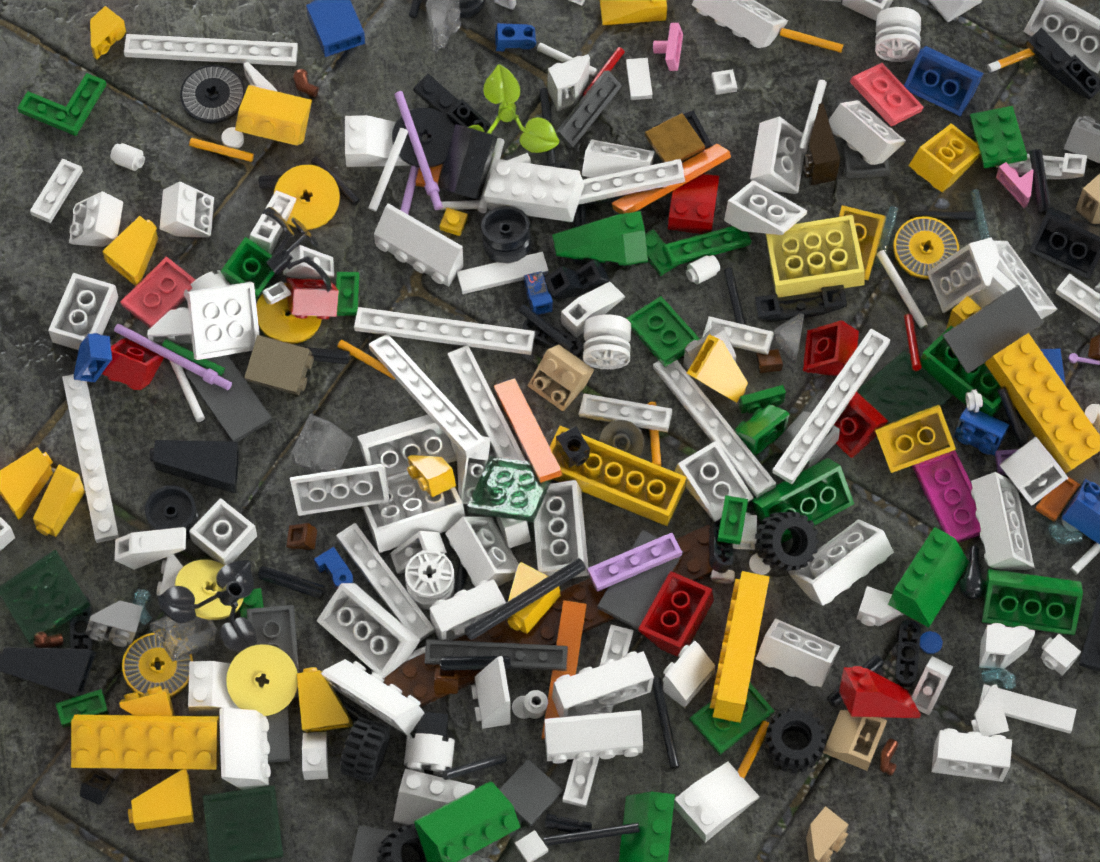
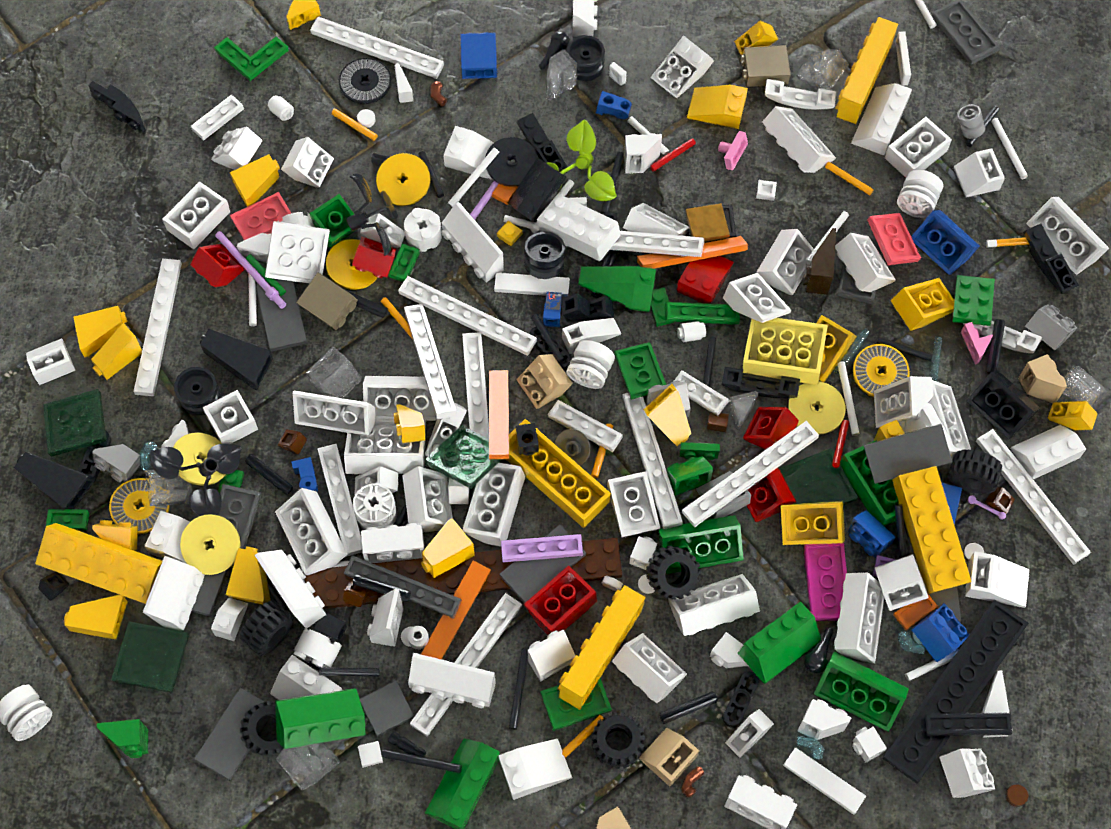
camera: 20 degrees right, 0 degrees up
(45, 641) = (58, 457): copper arm -> none
(92, 357) = (186, 250): blue slope -> none
(149, 546) = (165, 409): white slope -> none
(267, 230) = (377, 182): white slope -> none
(273, 115) = (401, 109): yellow slope -> none
(276, 293) = (346, 244): white slope -> none
(354, 248) = (422, 229): none -> white brick
(431, 187) = (501, 201): lavender bar -> none
(524, 599) = (439, 549): black axle -> none
(588, 109) = (649, 178): dark grey plate -> none
(603, 685) = (474, 641): white brick -> none
(639, 78) = (699, 167): white tile -> none
(715, 551) = (613, 562): black beam -> none
(732, 520) = (634, 540): green plate -> none
(875, 696) = (698, 726): red slope -> none
(882, 299) = (830, 403): none -> light yellow piece
(930, 642) = (764, 696): blue piece -> none
(974, 401) = (871, 508): white plate -> none
(990, 714) = (789, 776): white slope -> none
(1068, 326) = (975, 471): none -> black tyre

